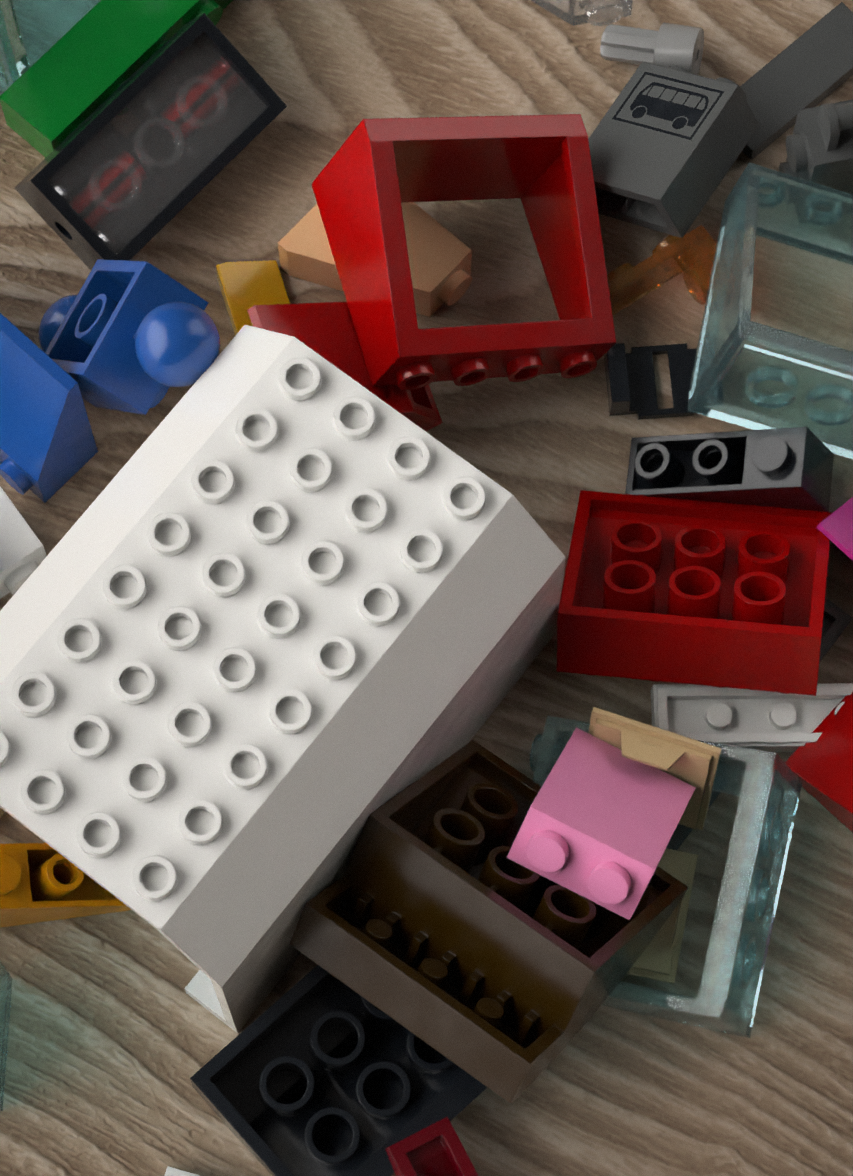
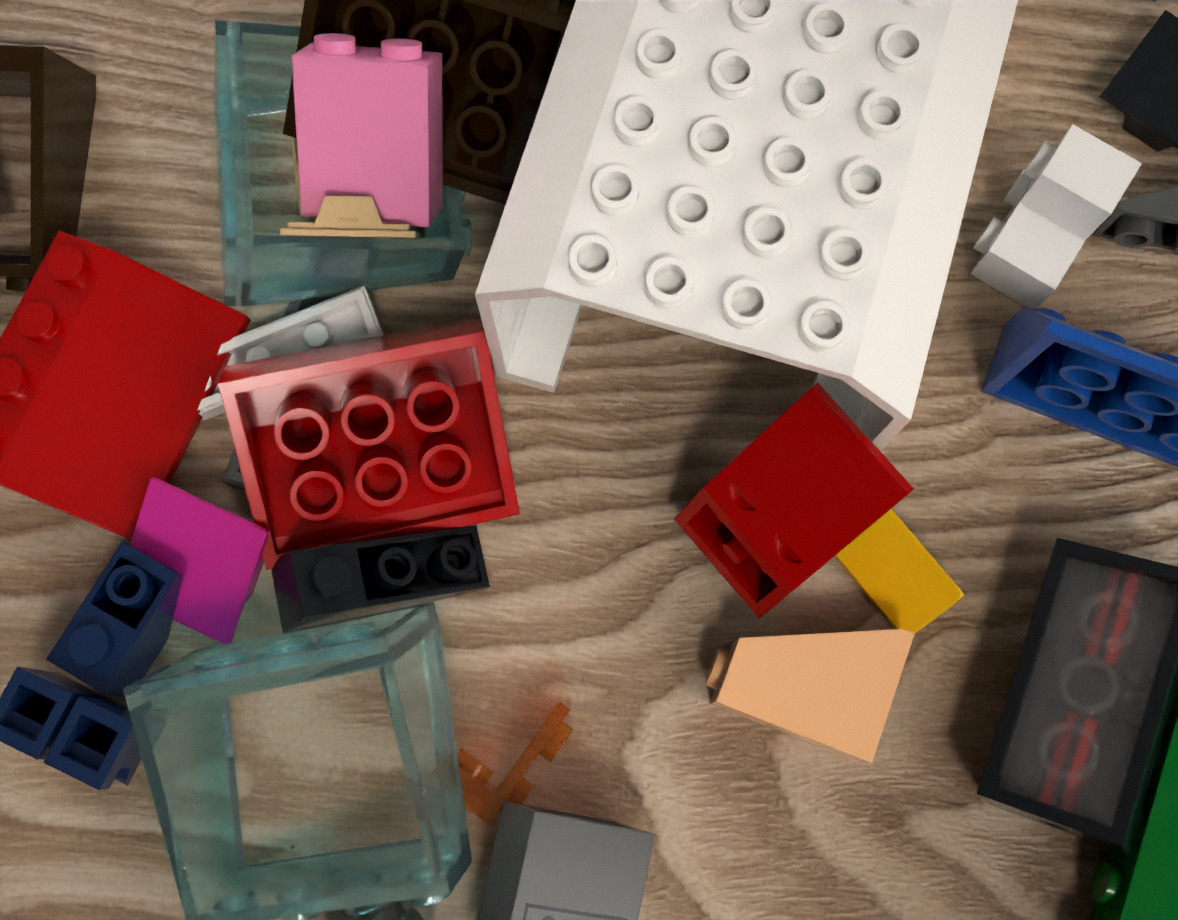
camera: 160 degrees right, 5 degrees up
(130, 336) = (1017, 421): blue brick -> none
(459, 159) = (645, 798): red windscreen -> none
(632, 380) = (509, 649): black piece -> none

